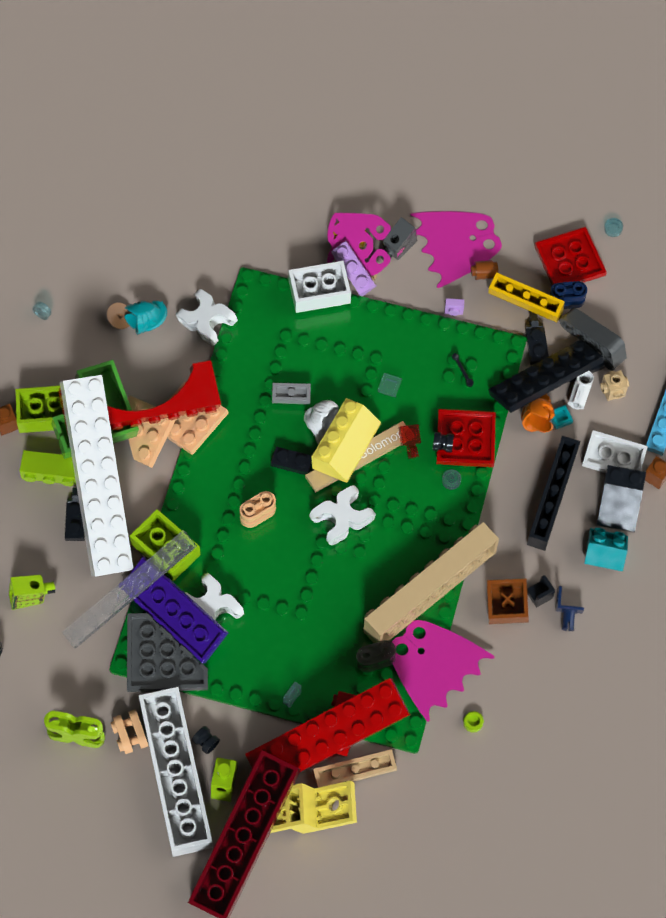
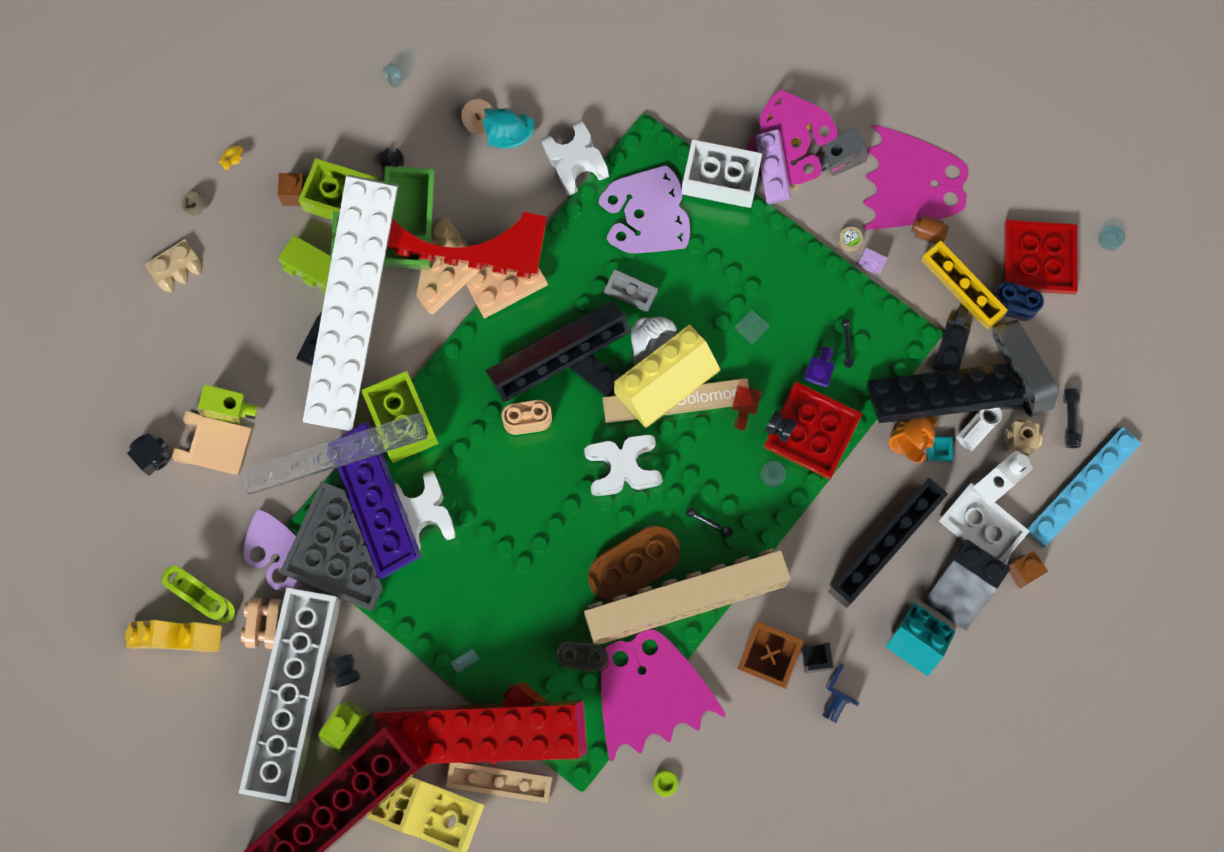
camera: 25 degrees right, 10 degrees up
(32, 623) = (215, 444): none -> light nougat flag
(59, 768) = (171, 635): none -> yellow arch
(65, 374) = (398, 161): none -> black bar
(109, 670) = (274, 539): none -> lavender piece
(258, 454) = (558, 351): none -> black brick
(284, 329) = (660, 210): none -> lavender piece
(381, 578) = (634, 563): none -> dark orange tile
(431, 298) = (850, 239): none -> tile
(438, 531) = (727, 532): none -> black hinge
(452, 393) = (820, 368): none -> dark purple bracket
(617, 407) = (1010, 470): none -> white torso
(636, 346) = (1071, 398): none -> black bar

